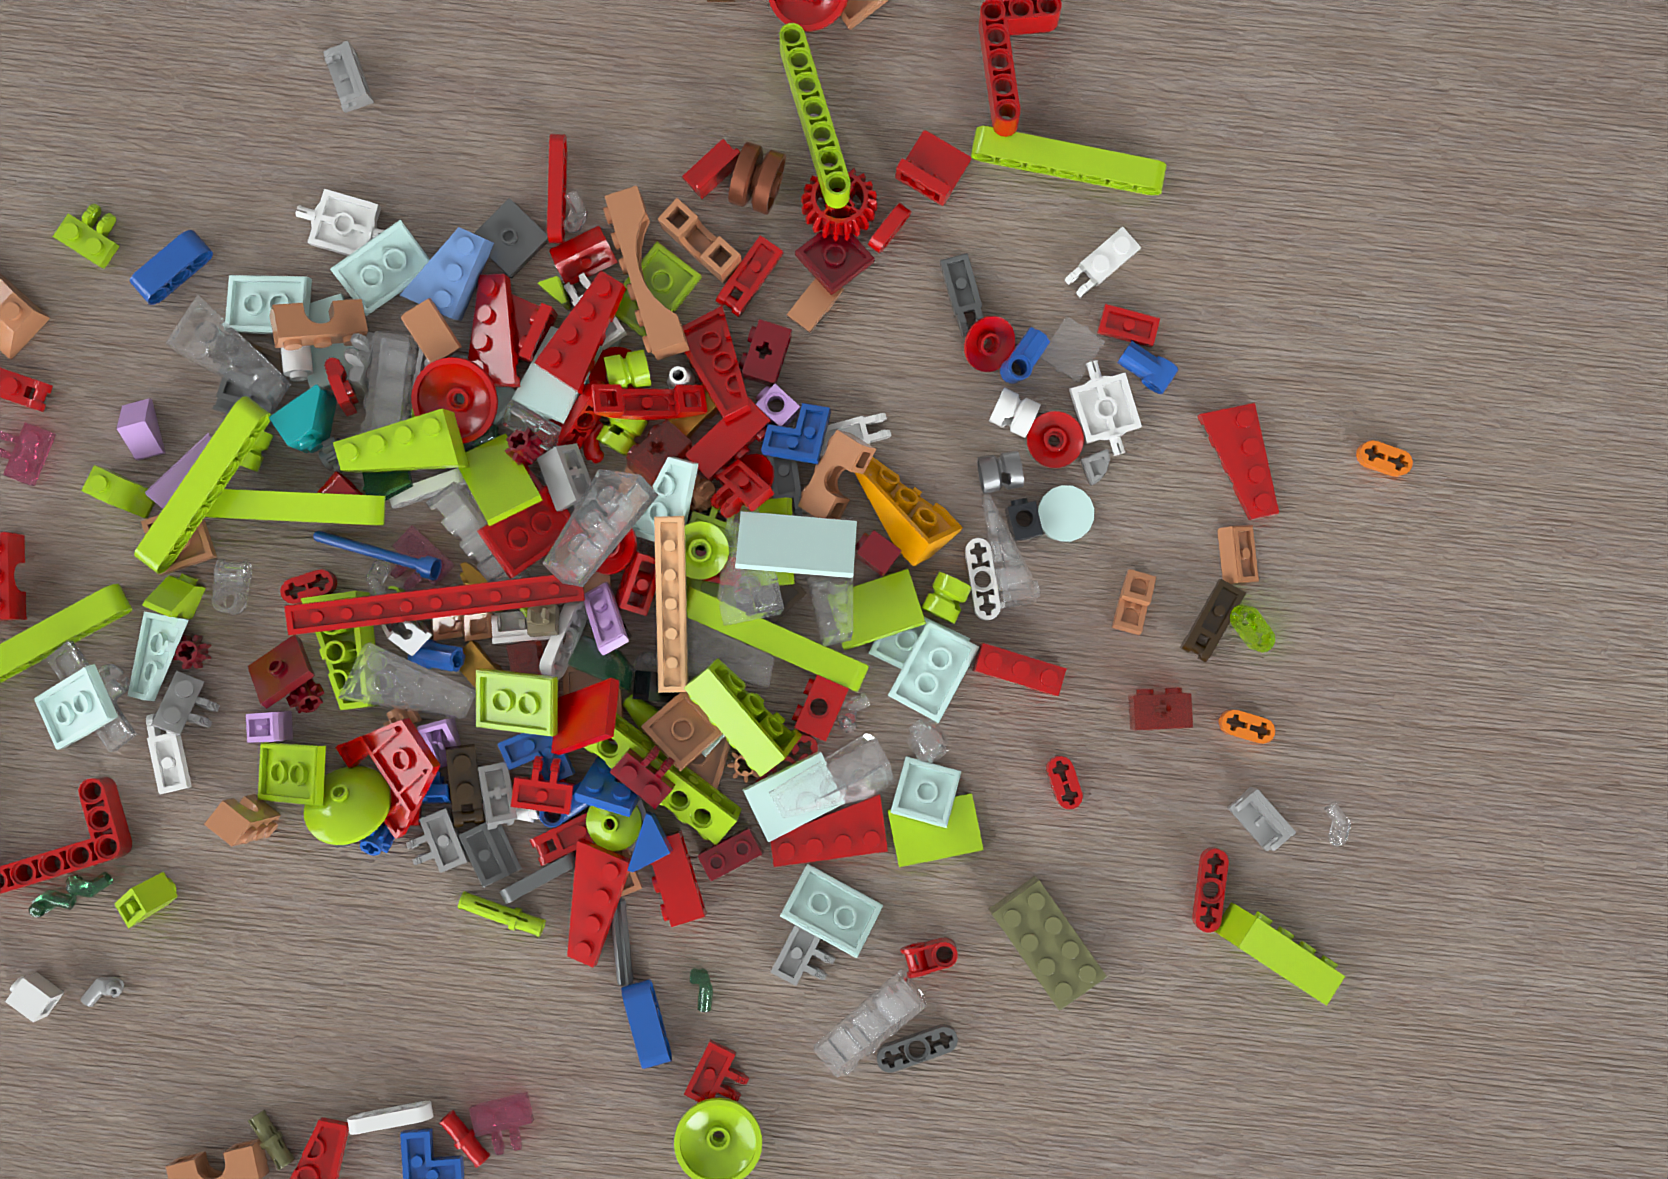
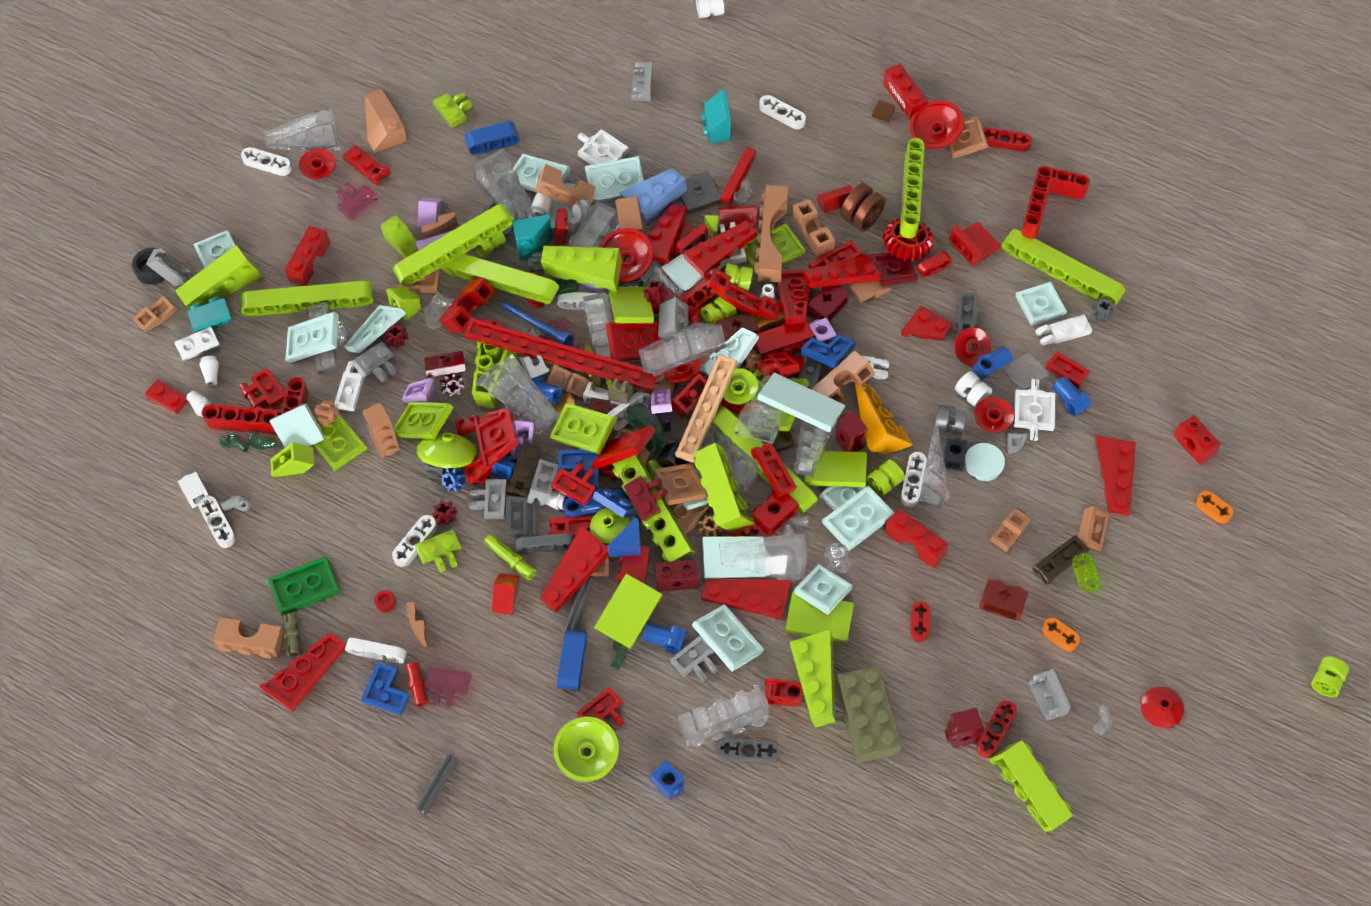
camera: 25 degrees right, 25 degrees down
(54, 802) = (268, 387): none -> red plate
(76, 1027) = (209, 517): none -> white beam
(127, 858) = (298, 427): none -> light aqua tile
(154, 816) = (326, 412): none -> nougat gear
(173, 445) = (445, 224): none -> nougat slope
(180, 839) = (340, 443): none -> lime tile
(252, 1064) = (304, 585): none -> green tile
(267, 549) = (458, 314): none -> red arch
(363, 919) = (416, 531): none -> white beam
(368, 1041) = (385, 601): none -> red tile
(379, 887) = (444, 518): none -> dark red gear
(402, 941) = (437, 547): none -> lime hinge
(431, 1068) = (419, 627): none -> nougat slope
(485, 104) = (717, 118): none -> teal slope
(518, 964) = (505, 593): none -> slope
(581, 58) = (779, 105): none -> white beam
(691, 937) = (628, 611): none -> lime tile
(757, 942) = (670, 638): none -> blue piece
(772, 297) = (848, 271): none -> red wing
(798, 658) = (774, 469): none -> red plate
(829, 1120) = (664, 771): none -> blue brick
(914, 330) = (927, 325): none -> red wing
(962, 917) = (816, 673): none -> lime wedge
(1057, 230) = (1041, 303): none -> light aqua tile
(1146, 217) = (1103, 310): none -> dark grey gear
(1174, 917) = (964, 728): none -> dark red brick
(1334, 368) = (1196, 439): none -> red brick
(1389, 767) = (1156, 713): none -> red dish
(1602, 640) = (1330, 676): none -> lime wheel

